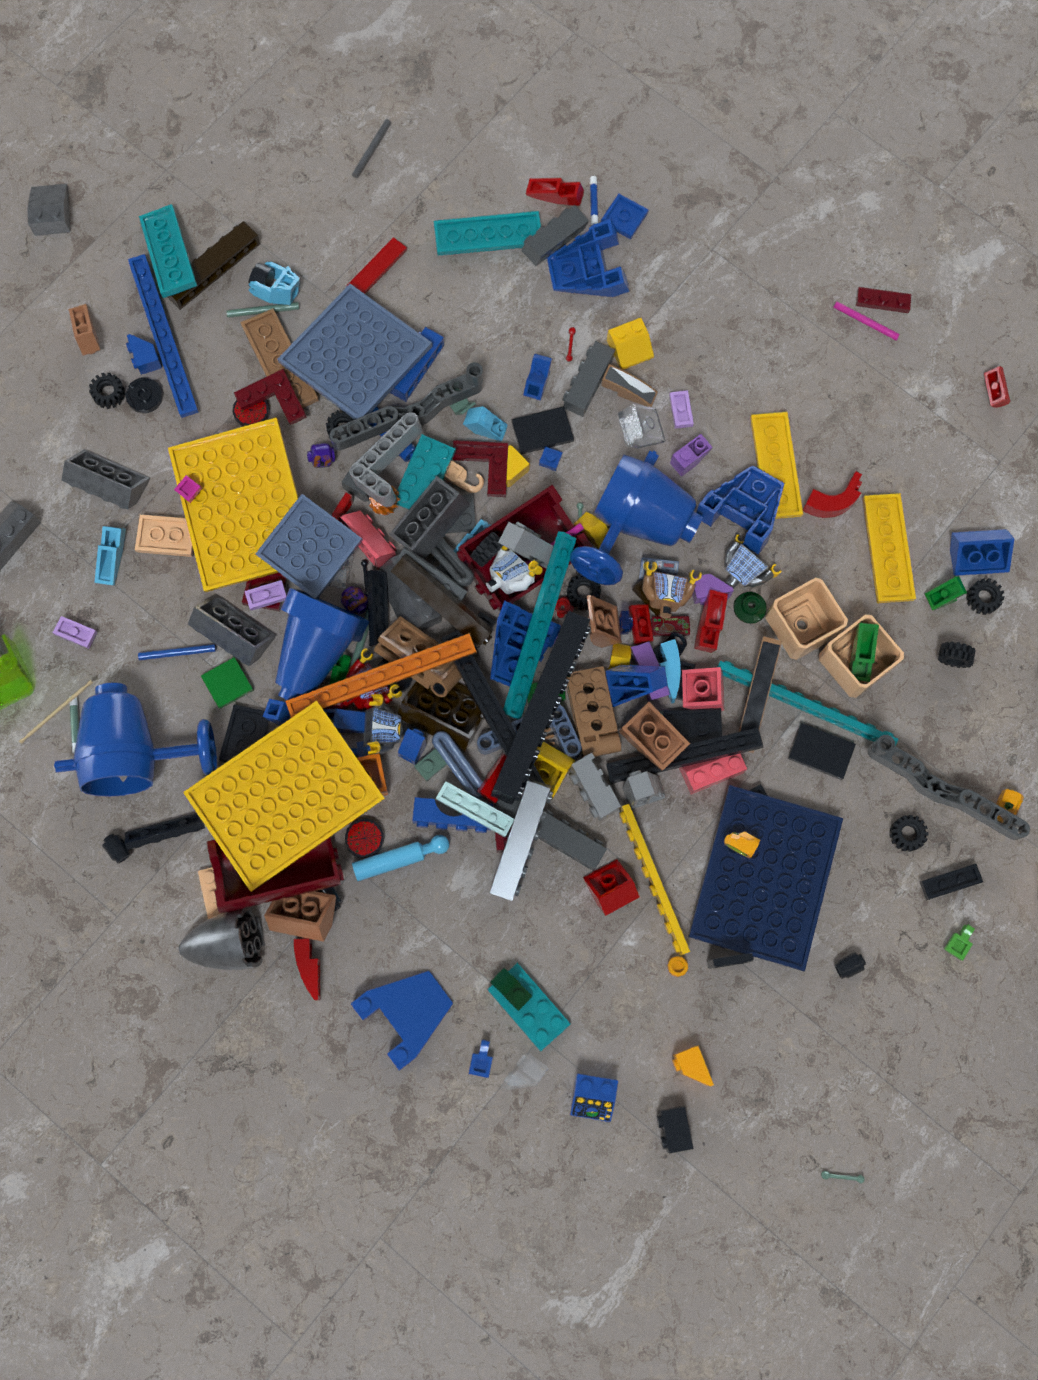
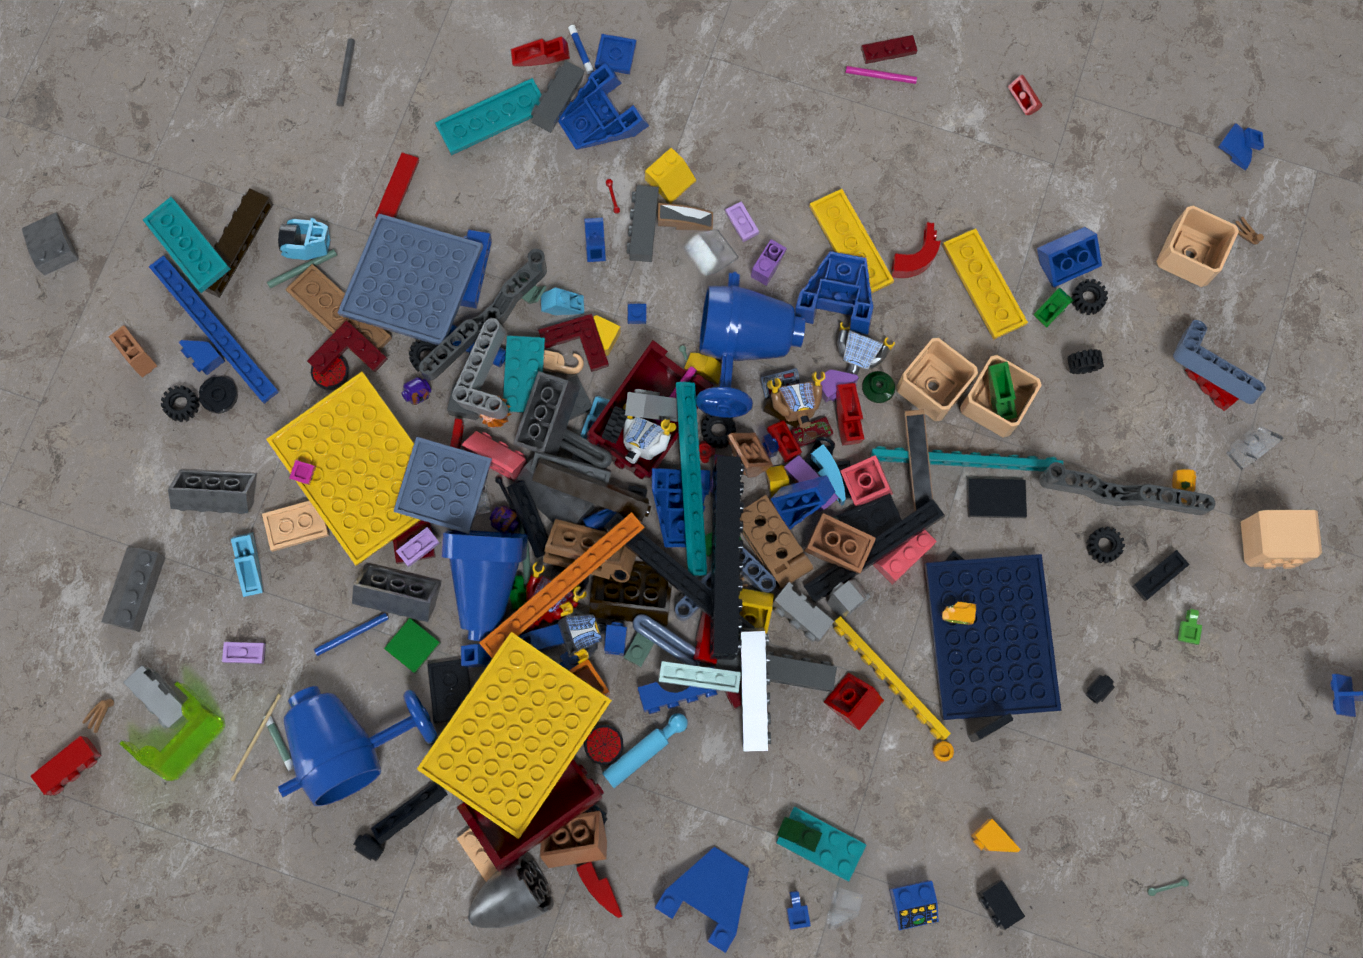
camera: 20 degrees left, 0 degrees up
(439, 631) = (599, 519): none -> blue arm
(542, 429) = (618, 289): black tile -> none

